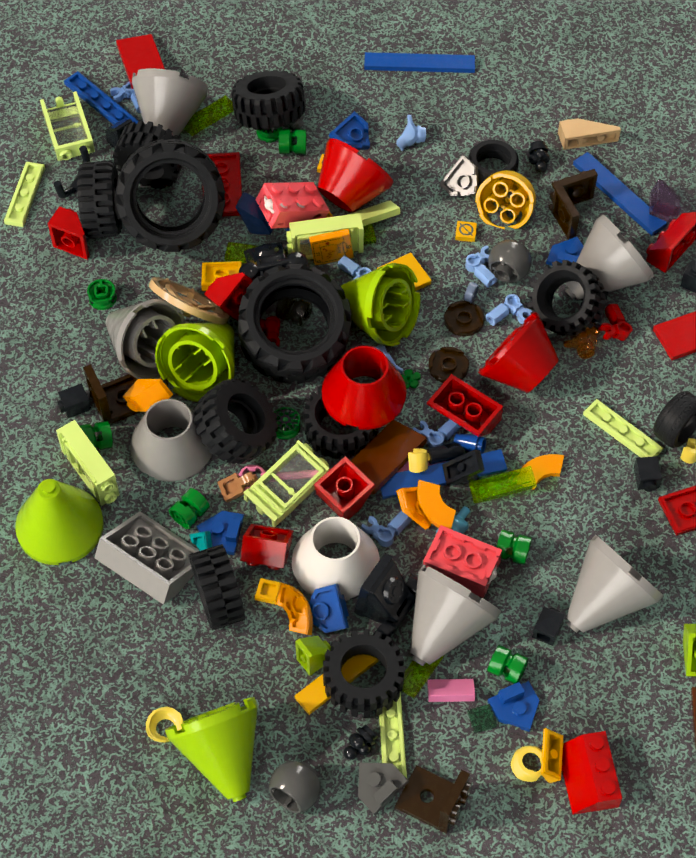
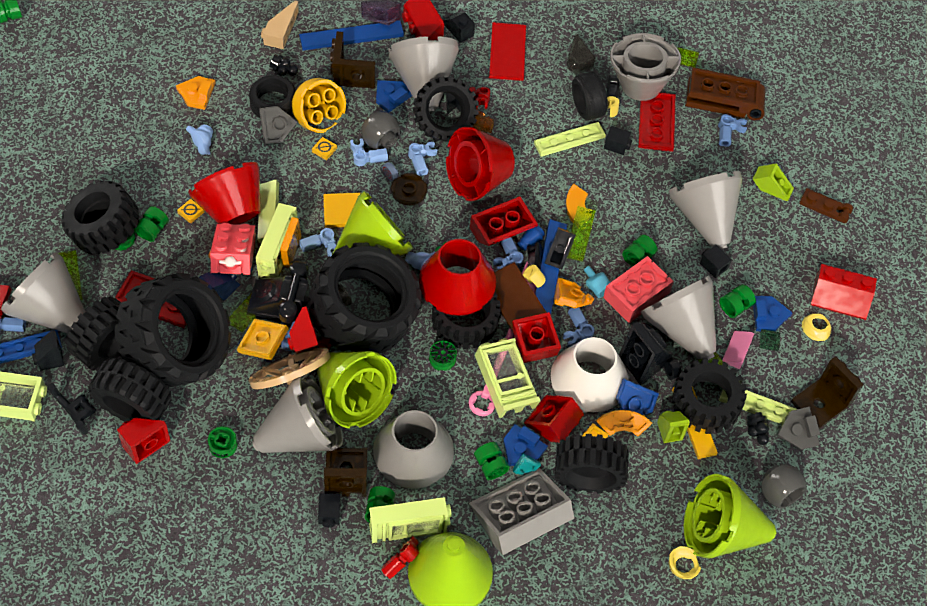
camera: 70 degrees left, 0 degrees up
(24, 194) = (57, 464): yellowish green tile -> none
(42, 474) = (398, 561): none -> red bar
(146, 393) = (368, 442): light orange slope -> none
(220, 432) = (436, 384): black tyre -> none
(233, 485) = (485, 418): medium nougat plate -> none
(353, 132) = (169, 178): blue plate -> none
(419, 62) = (123, 99): blue tile -> none
(432, 505) = (579, 283): light orange tile -> none
(447, 362) = (442, 221): dark brown tile -> none
(464, 108) = (196, 91): none -> light orange plate
(552, 756) = (821, 307): yellow slope -> none

